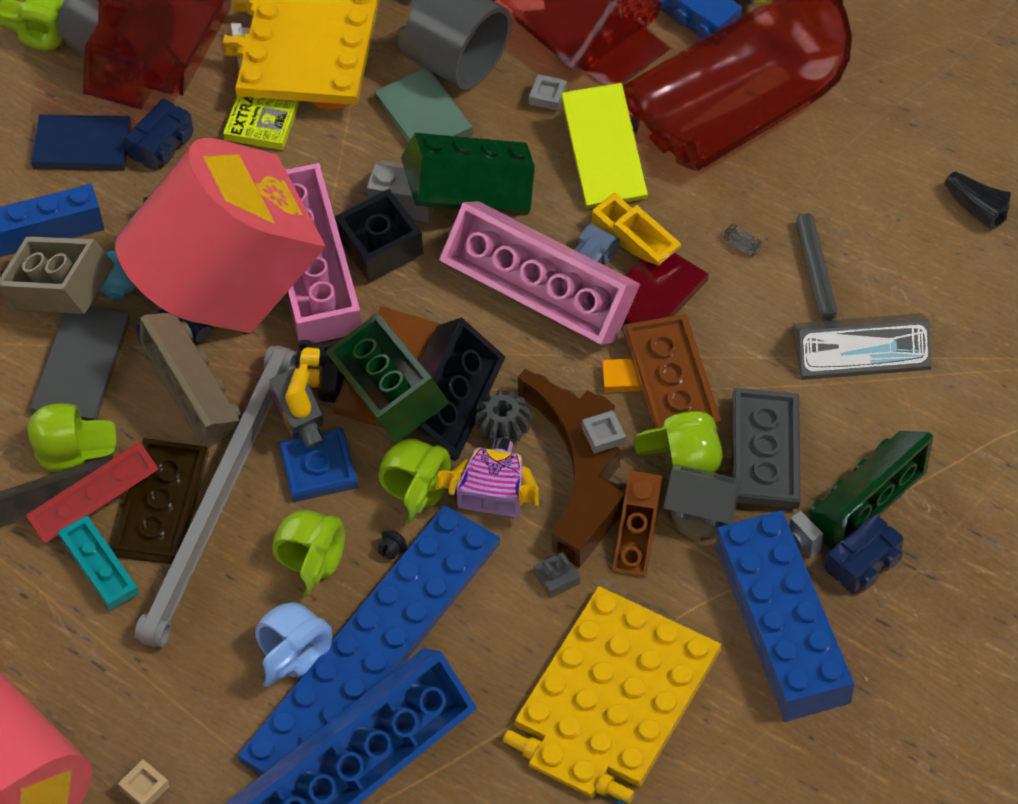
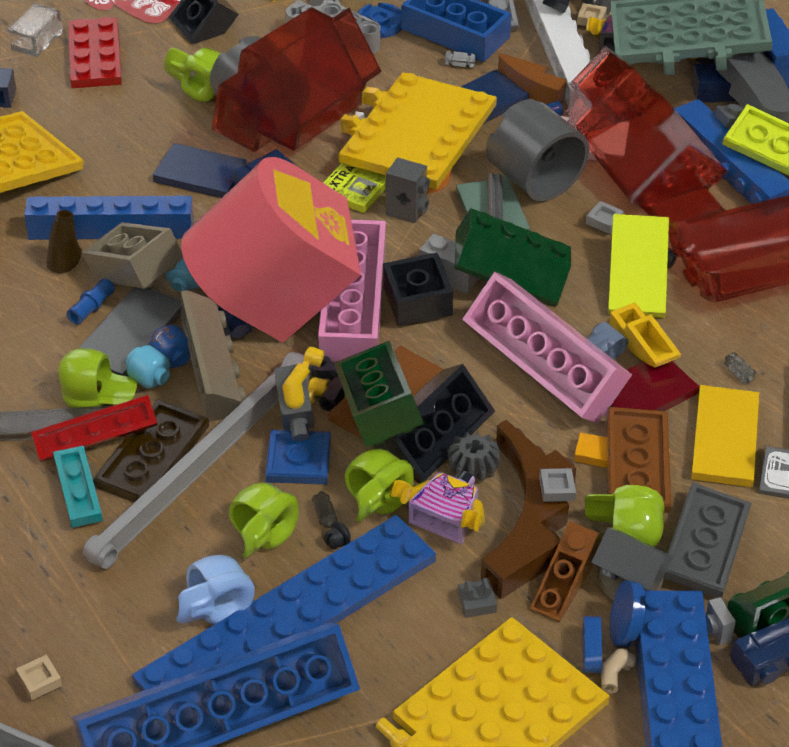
camera: 15 degrees right, 10 degrees down
(24, 339) = (90, 301): none -> blue pin
(120, 403) = (148, 366): none -> medium azure head
(135, 373) = (172, 343): none -> blue head
(326, 115) = (406, 190): none -> dark grey brick
(367, 518) = (324, 509): none -> clear smoke piece
(425, 102) = (495, 195): none -> dark grey axle
(688, 594) = (592, 644): none -> blue beam
(713, 554) = (627, 613): none -> blue tile
(713, 611) = (612, 665): none -> tan arm
(750, 323) = (725, 436): none -> yellow tile

